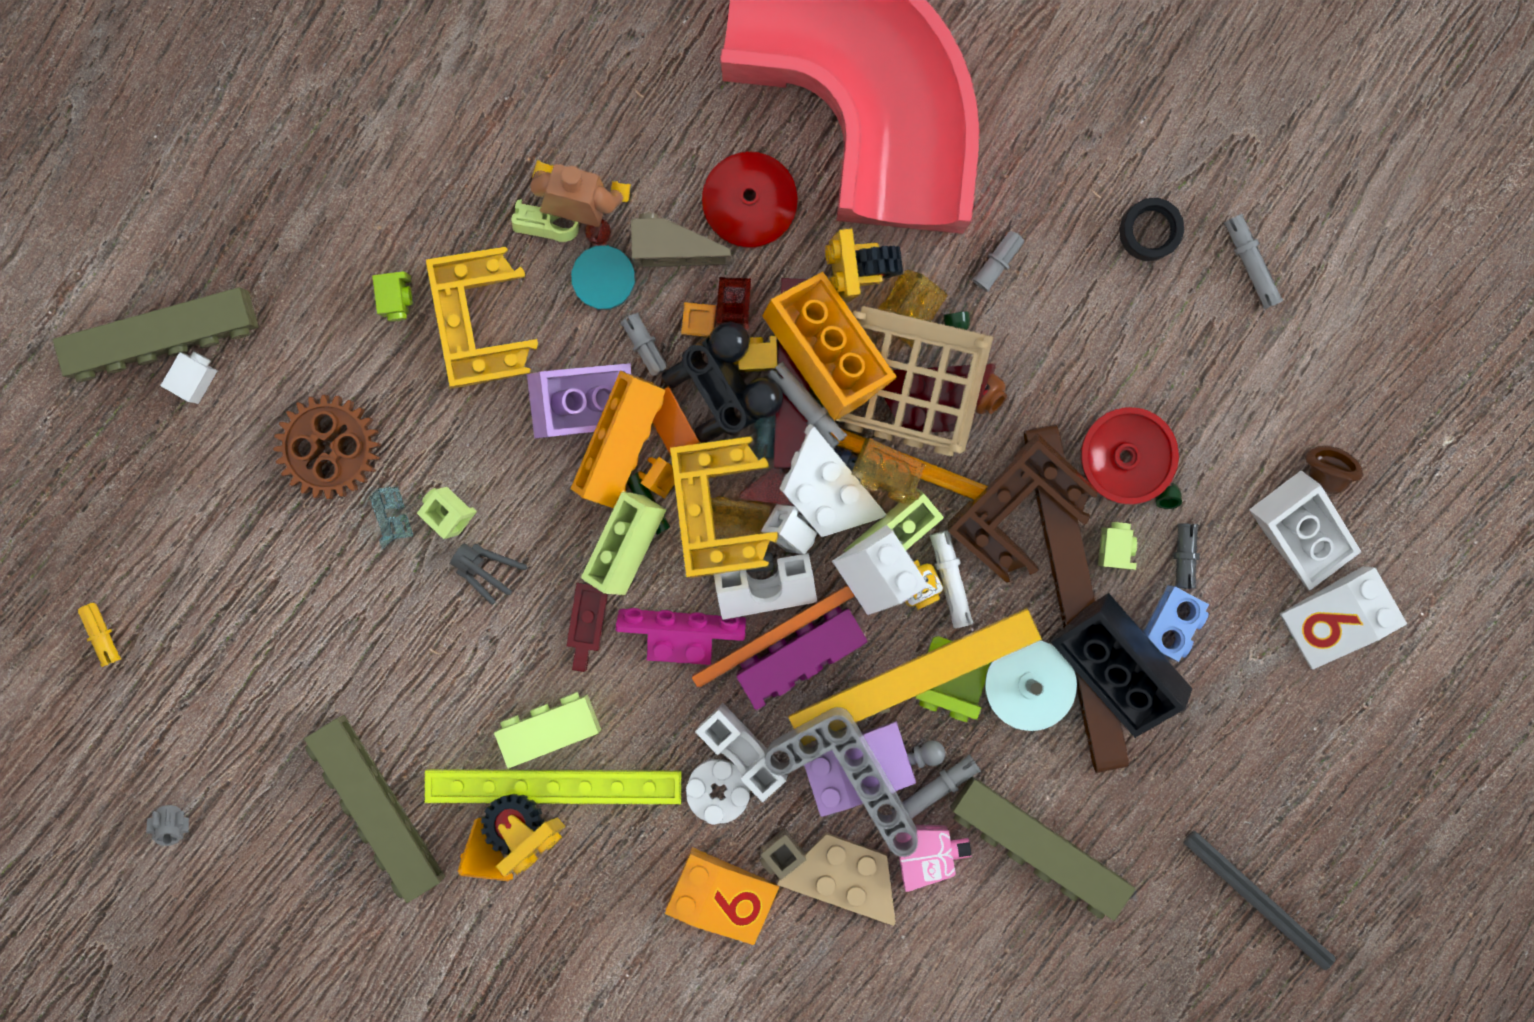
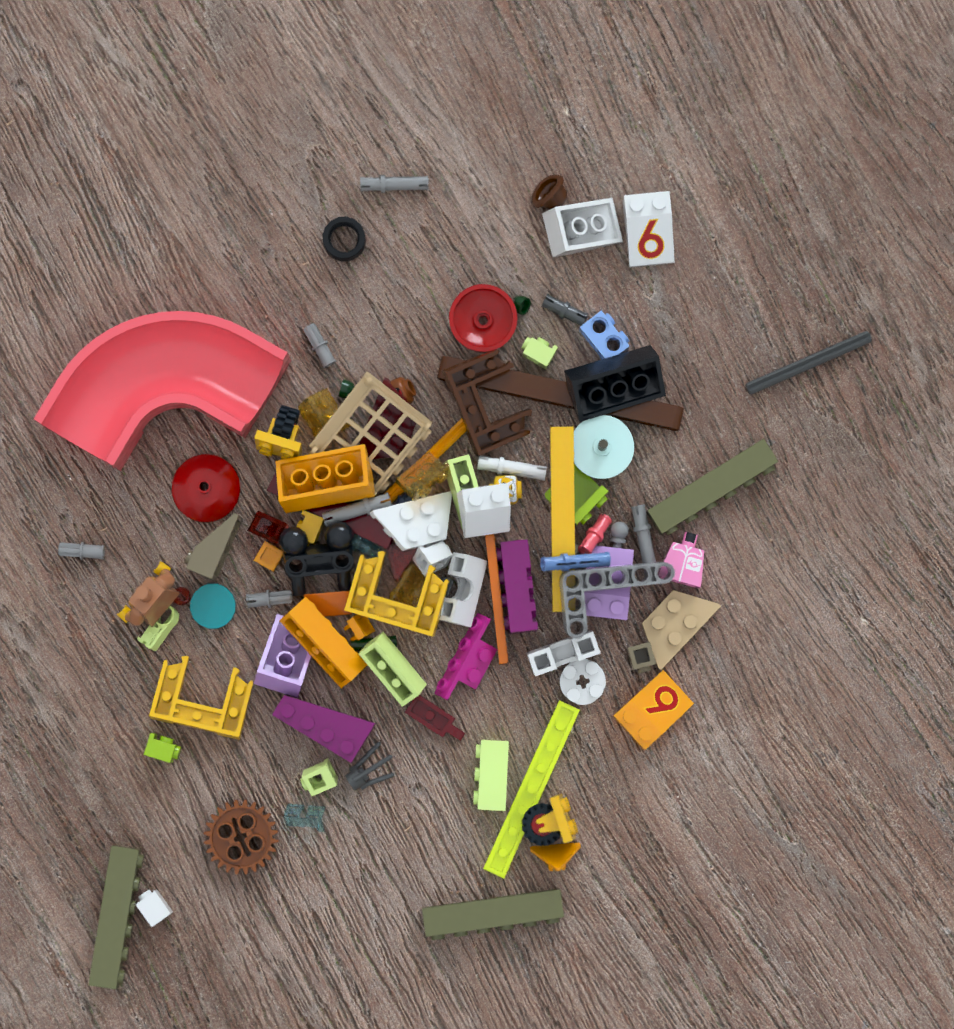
camera: 70 degrees left, 5 degrees down
(513, 491) = (330, 728): none -> magenta wedge
(598, 78) = (81, 550): none -> light grey axle
(859, 708) = (565, 562): none -> medium blue pin
(912, 725) = (595, 534): none -> coral pin

